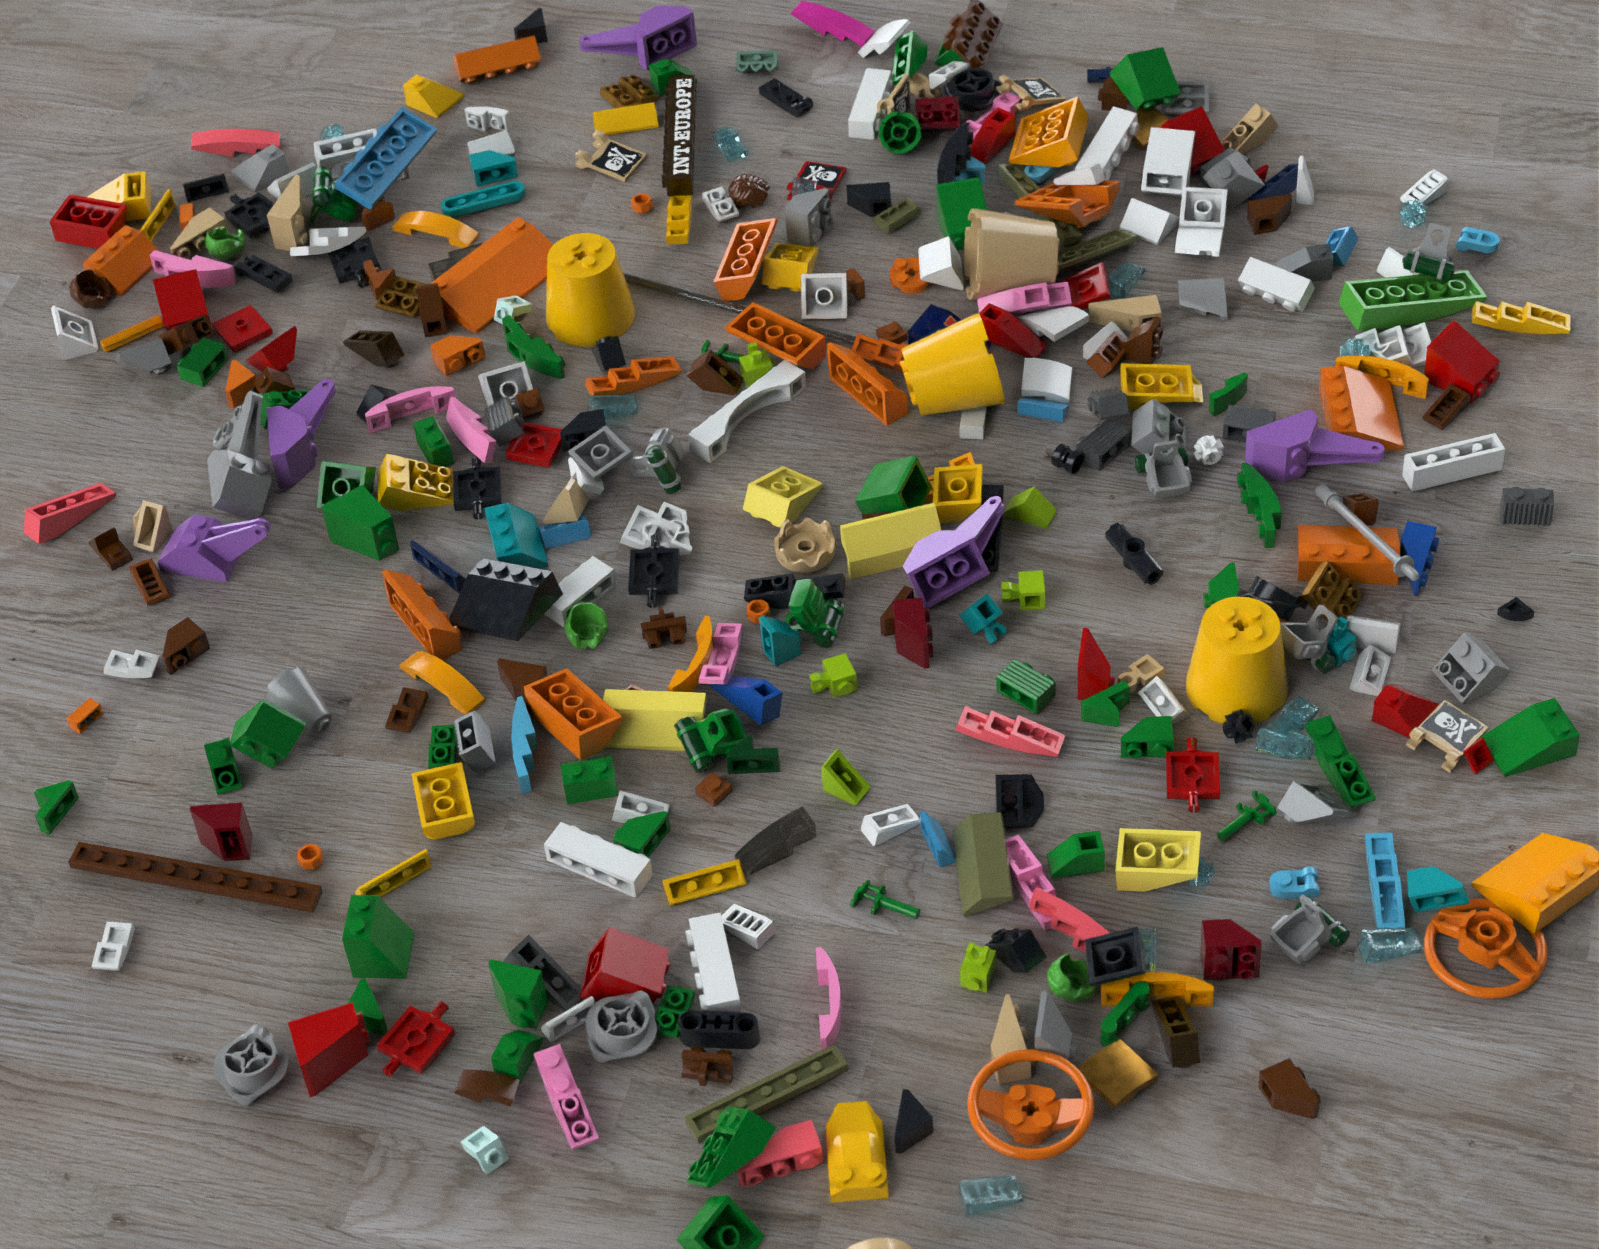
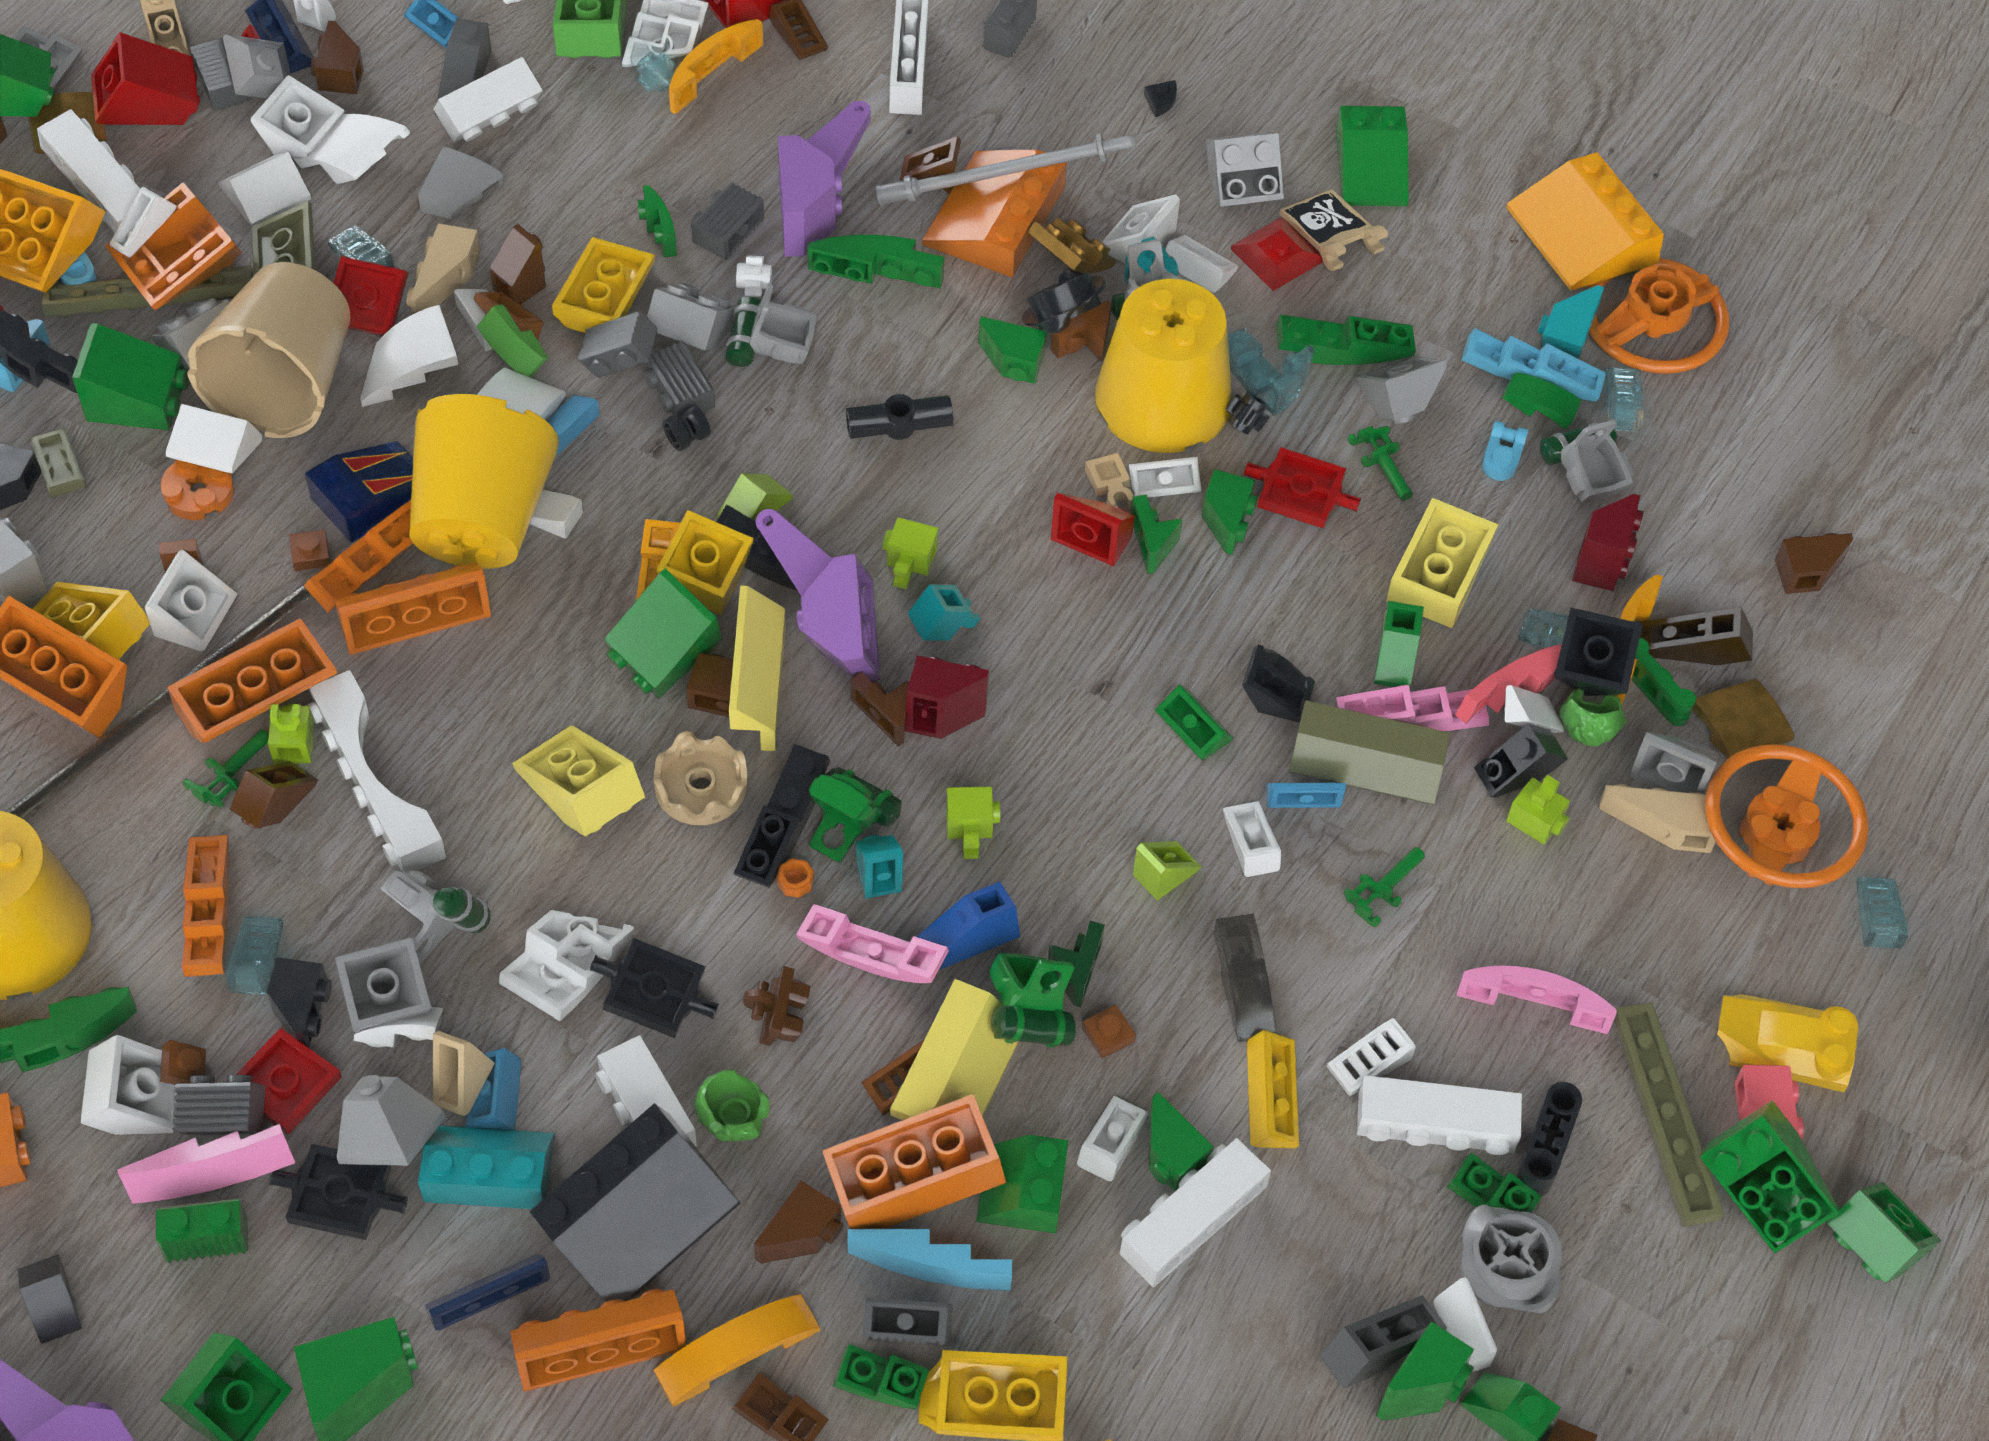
camera: 80 degrees left, 10 degrees up
(406, 404) = (90, 1203): bright pink slope -> none
(413, 484) = (278, 1286): yellow slope -> none
(517, 484) = (385, 1122): none -> light grey slope
(565, 1097) = (1616, 1365): bright pink slope -> none
(608, 353) = (139, 922): black slope -> none
(623, 966) = (1417, 1231): red slope -> none
(688, 680) = (825, 955): light orange slope -> none
(707, 1066) = (1612, 1170): reddish brown hips -> none
(913, 1123) = (1760, 960): black slope -> none
(969, 771) = (1193, 722): none -> green slope
(1009, 733) = (1151, 654): coral slope -> none
(1010, 333) = (392, 411): red slope -> none
(1026, 686) = (1082, 607): green brick -> none
(1029, 298) = (354, 371): bright pink slope -> none
(1051, 935) = (1532, 708): none -> white slope
(1083, 359) = (515, 347): none -> bright green slope
(1167, 161) = (187, 117): white slope -> none
(1353, 892) = (1535, 394): none -> green slope
(1359, 406) = (754, 109): orange slope -> none
(1418, 543) = (1025, 132): blue slope -> none
(1478, 755) = (1375, 213): red slope -> none

